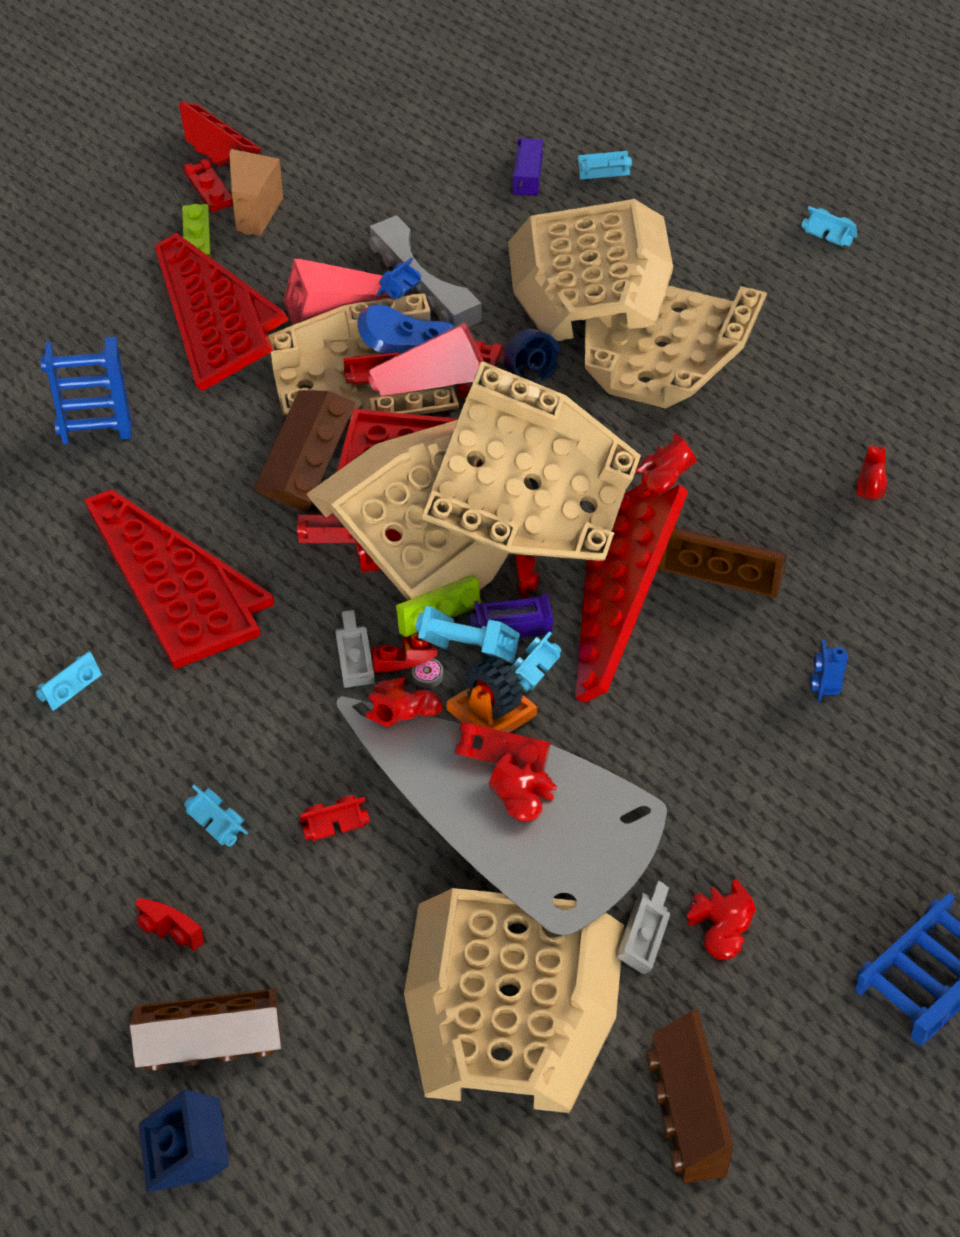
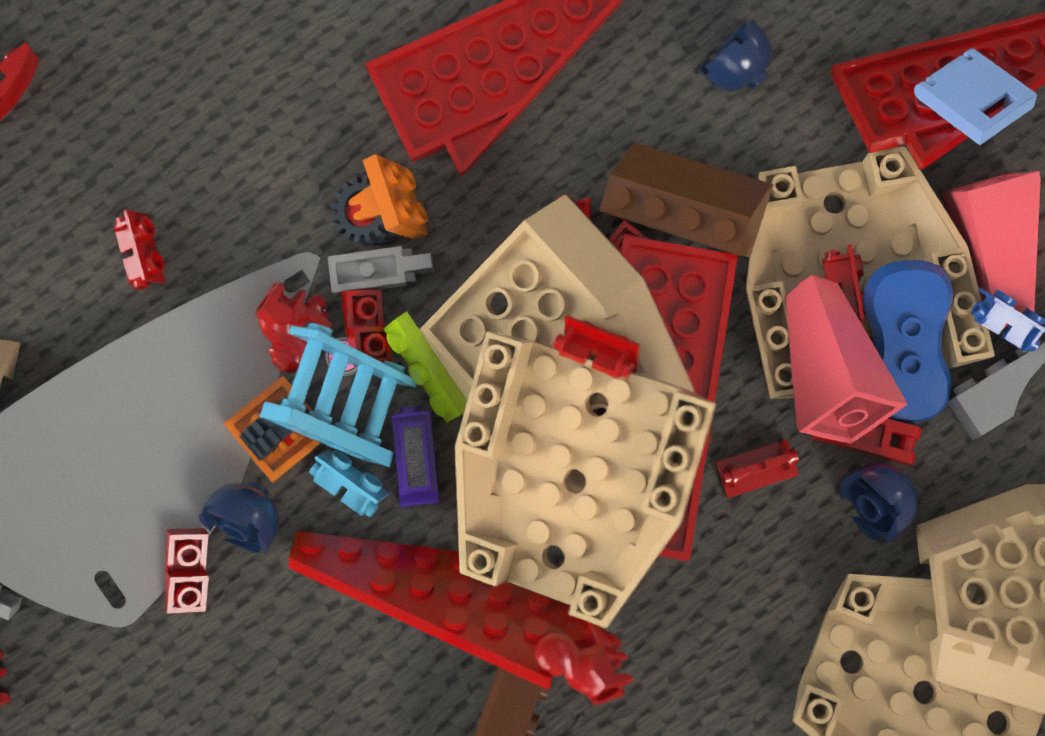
camera: 90 degrees right, 30 degrees up
(185, 425) = (740, 59): none -> dark blue cylinder
(224, 824) = (162, 117): medium azure hinge -> none
(231, 294) = (969, 88): none -> light blue container
(300, 641) = (379, 204): none -> orange plate
(431, 453) = (614, 353): none -> red hinge
(499, 743) = (204, 436): red plate -> none
(521, 789) = (137, 446): red animal -> none
(567, 715) = (238, 510): none -> dark blue cylinder
(623, 766) = (185, 570): none -> slope

